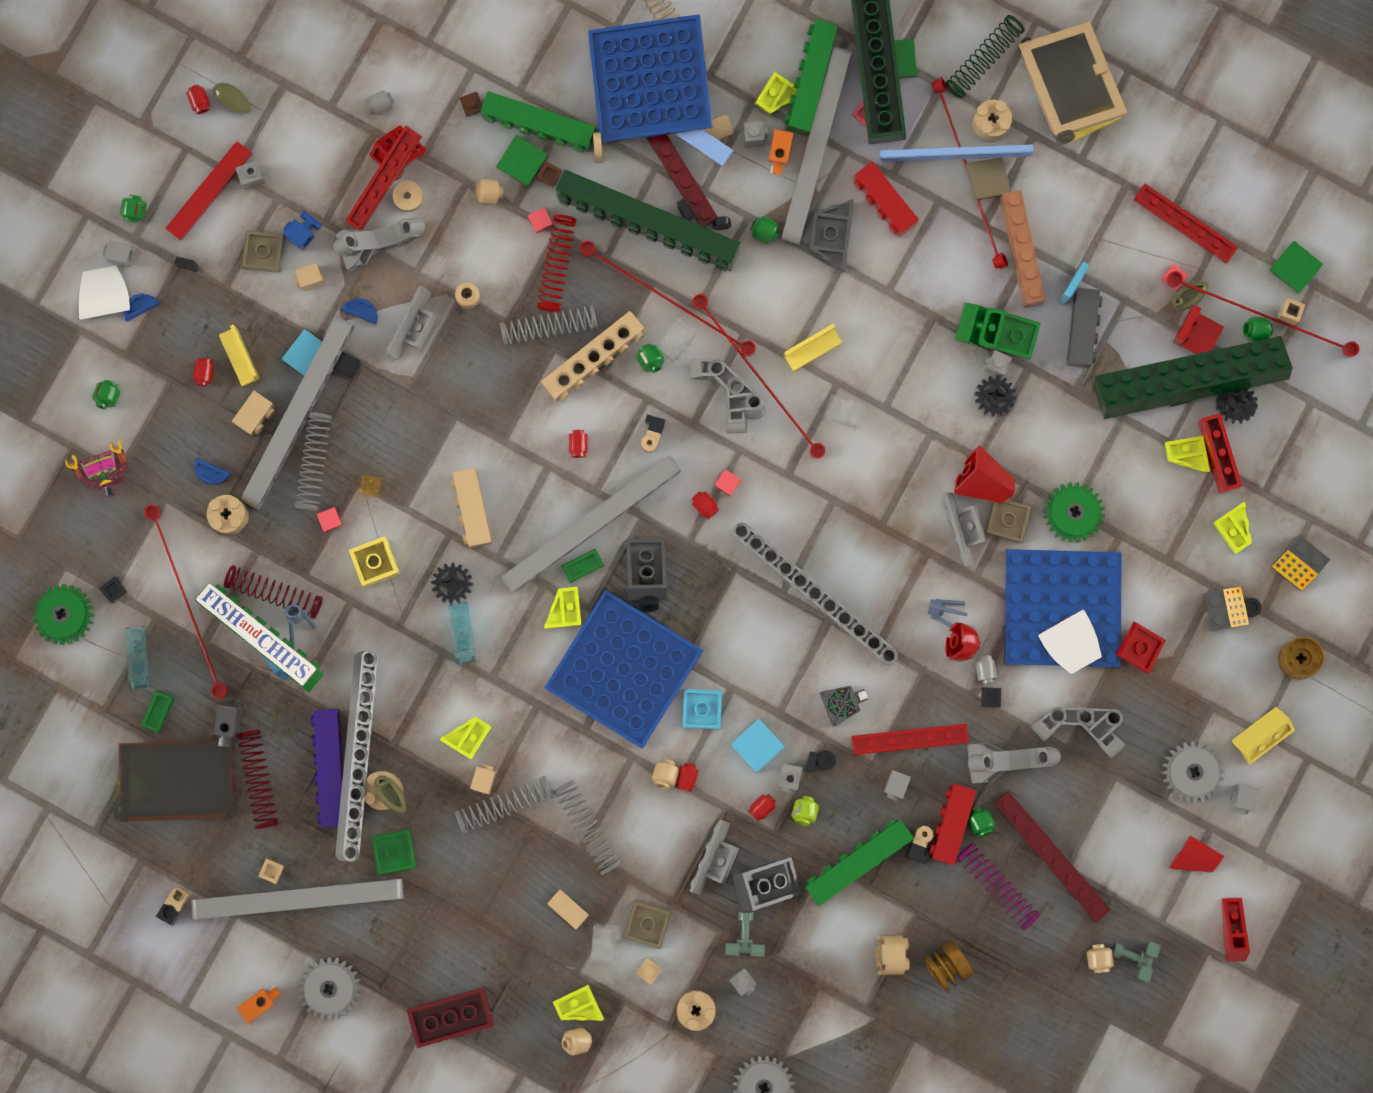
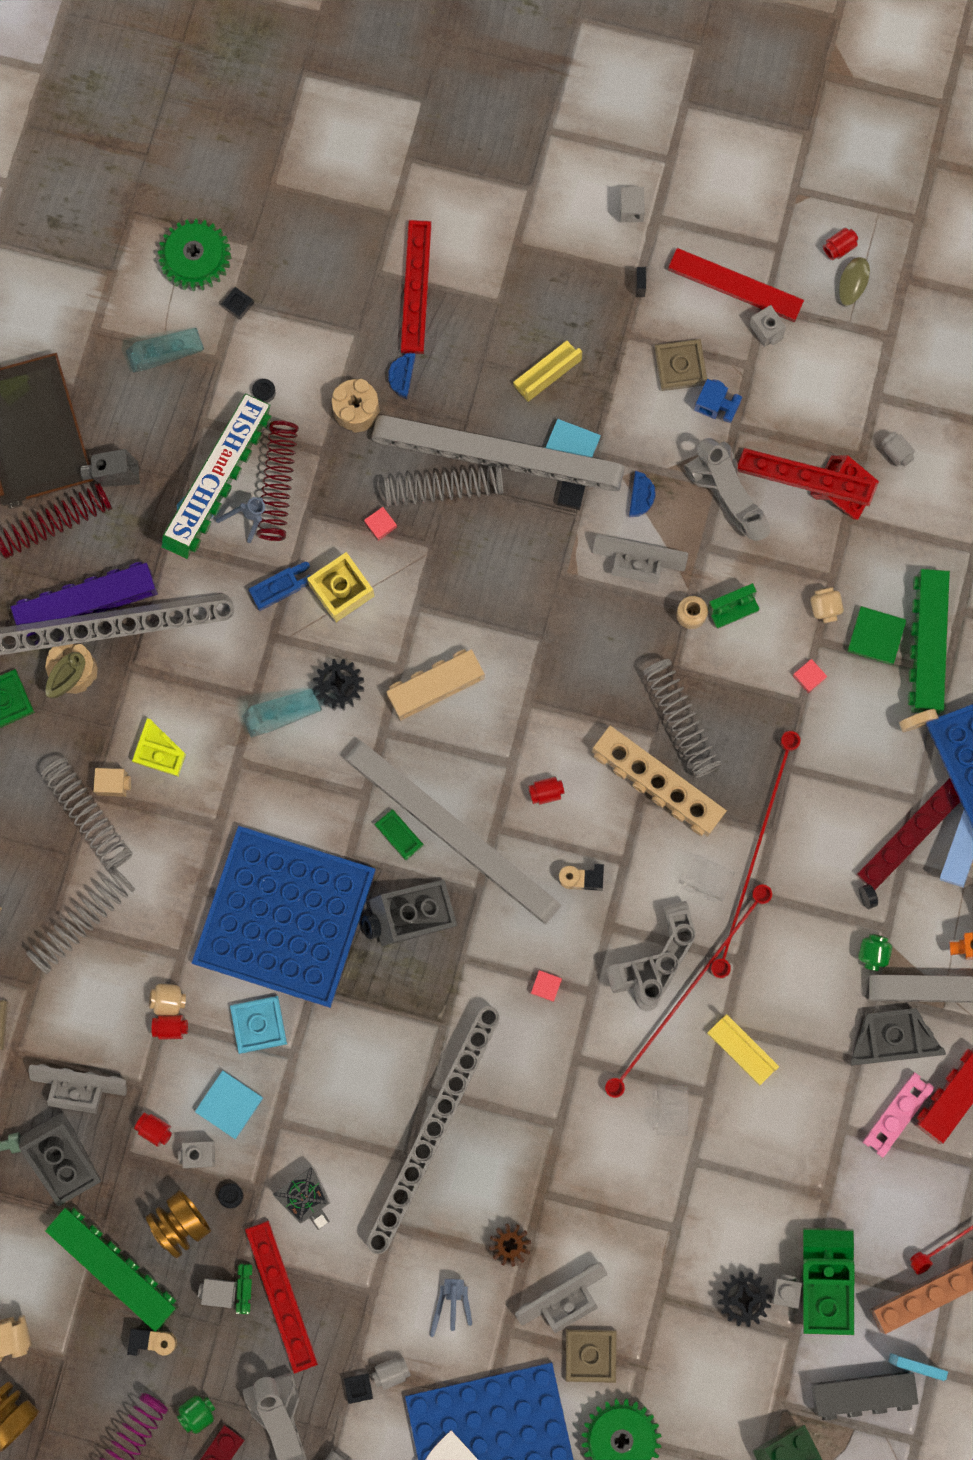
camera: 80 degrees right, 5 degrees down
(102, 293) = (581, 199): white sticker -> none
(102, 469) = (372, 251): torso -> none
(106, 394) = (462, 234): green head -> none
(133, 208) = (689, 206): green head -> none
(139, 443) = (416, 287): none -> red tile
(140, 304) = (578, 243): blue tile -> none
(153, 513) = (148, 451): red piece -> none
(157, 711) = (107, 389): green tile -> none
(193, 586) = (264, 390): none -> black tile
(203, 372) = (518, 334): red brick -> none
(254, 413) = (483, 404): tan brick -> none
(309, 277) = (664, 424): tan brick -> none
(360, 611) = (279, 586): none -> blue hinge
(370, 486) = (432, 560): clear yellow plate -> none
(413, 202) = (794, 502): tan piece -> none
(471, 103) = (929, 557): reddish brown plate -> none
(471, 262) = (733, 606): none -> green bracket
(549, 174) = (869, 672): reddish brown plate -> none
(554, 306) = (816, 700): red piece -> none
(565, 609) = (340, 827): neon yellow wing -> none
(647, 220) = (844, 804): dark green brick -> none
(650, 358) = (674, 851): green head -> none
(684, 210) = (871, 847): black tile -> none
(704, 505) = (510, 964): red brick -> none
(805, 811) = (160, 1184): lime head -> none
(811, 761) = (223, 1176): black tile -> none
(839, 803) = (178, 1224): none -> pearl gold wheel
(888, 247) = (898, 1114): none -> bright pink plate
(898, 766) = (244, 1289): none -> green axle
(907, 558) = (514, 1252): none -> reddish brown gear
(953, 823) = (186, 1378): red brick -> none
(963, 642) = (417, 1334): red cylinder -> none
(984, 478) = (634, 1311): red slope -> none

